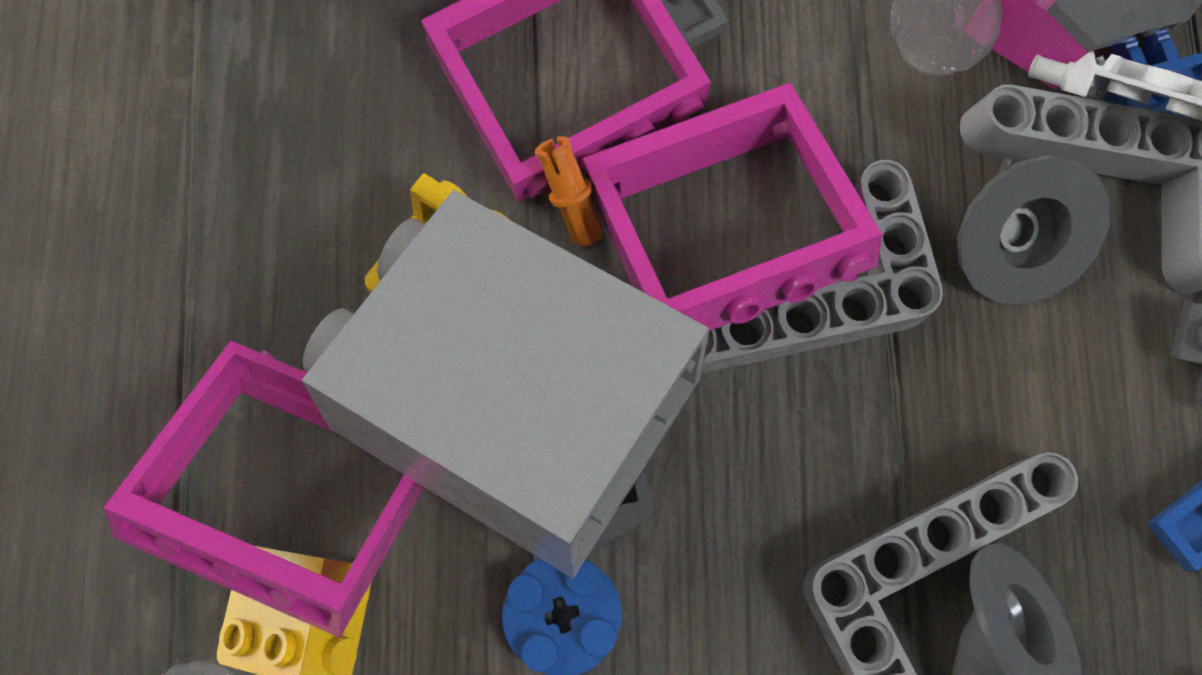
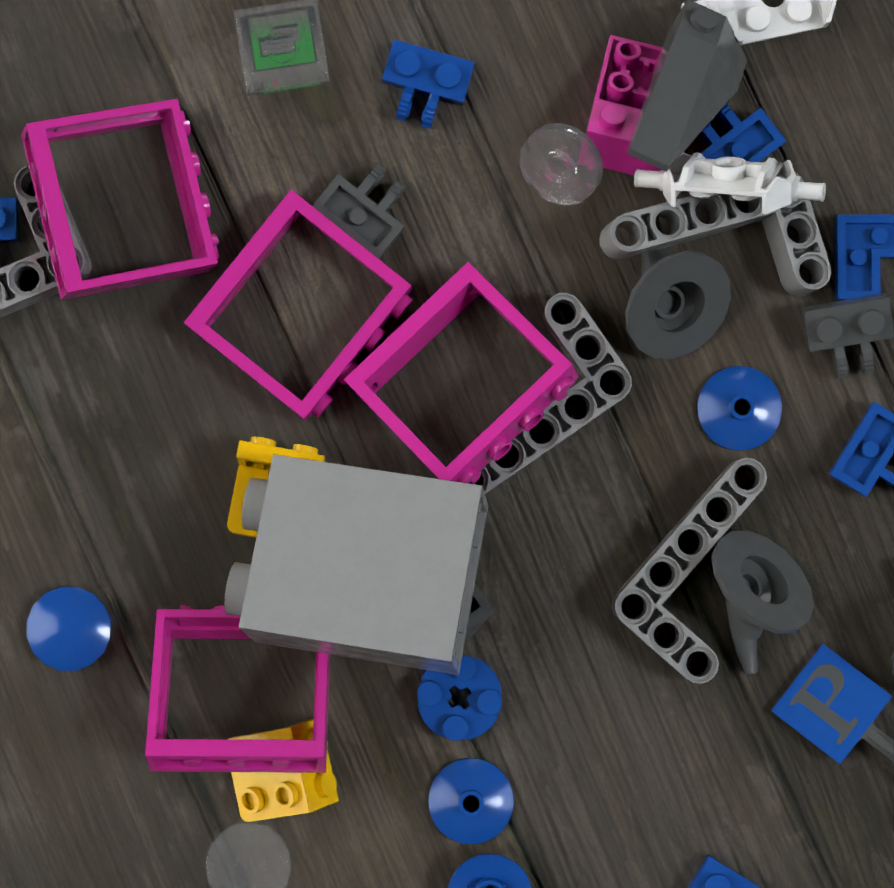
camera: 20 degrees left, 10 degrees up
(120, 327) = (68, 628): none -> blue dish
(570, 191) = (344, 406): orange axle -> none
(1036, 410) = (717, 410): none -> blue dish

